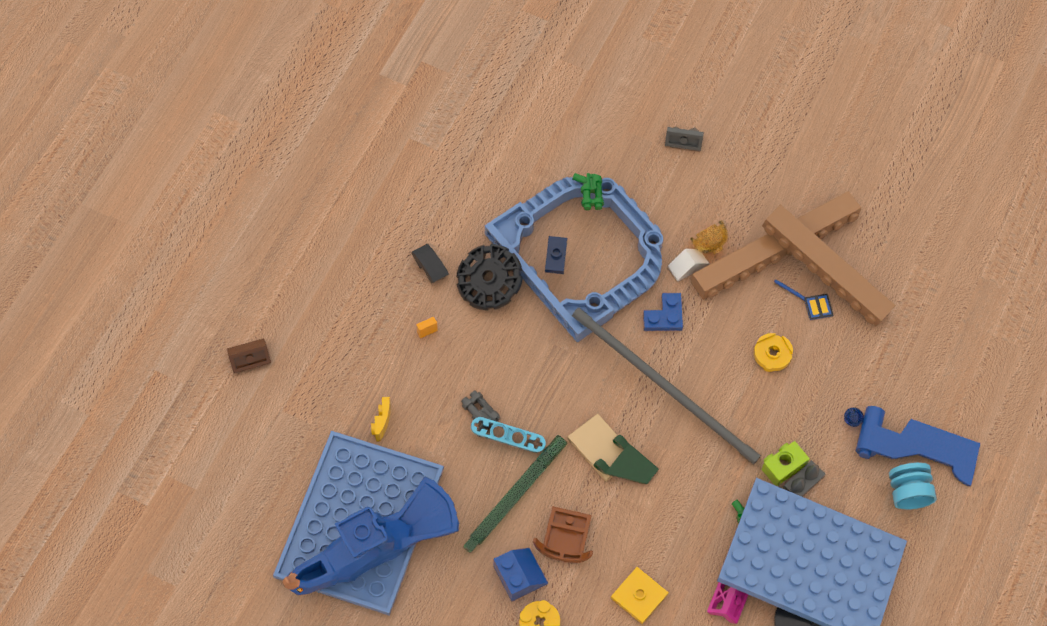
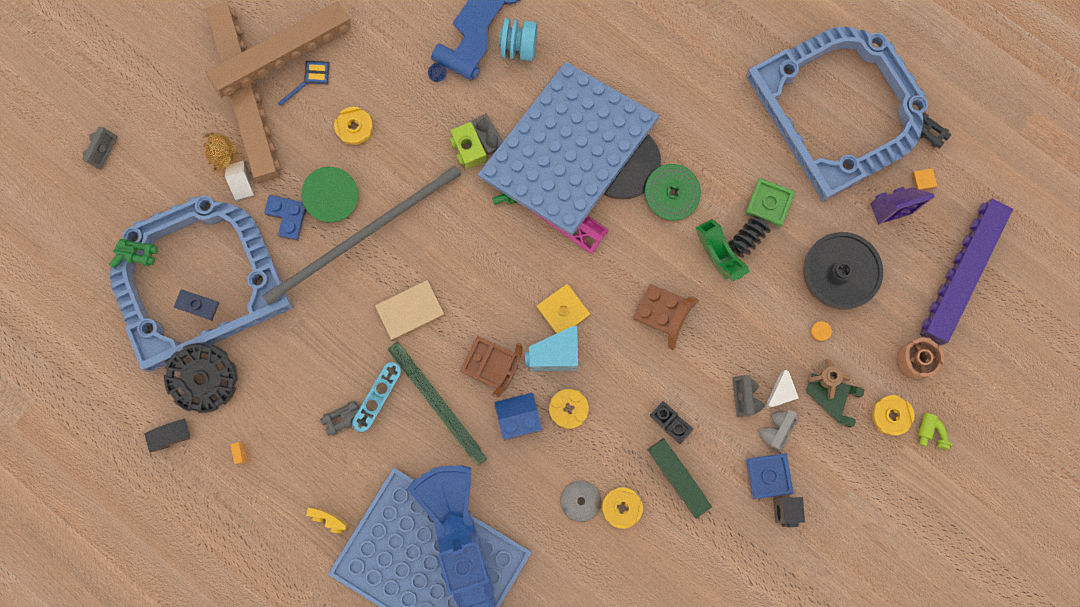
camera: 75 degrees left, 15 degrees up
(593, 592) = (554, 352): none -> medium azure slope
(629, 464) = (434, 287): dark green flag -> none
(696, 346) = (329, 194): none -> green piece

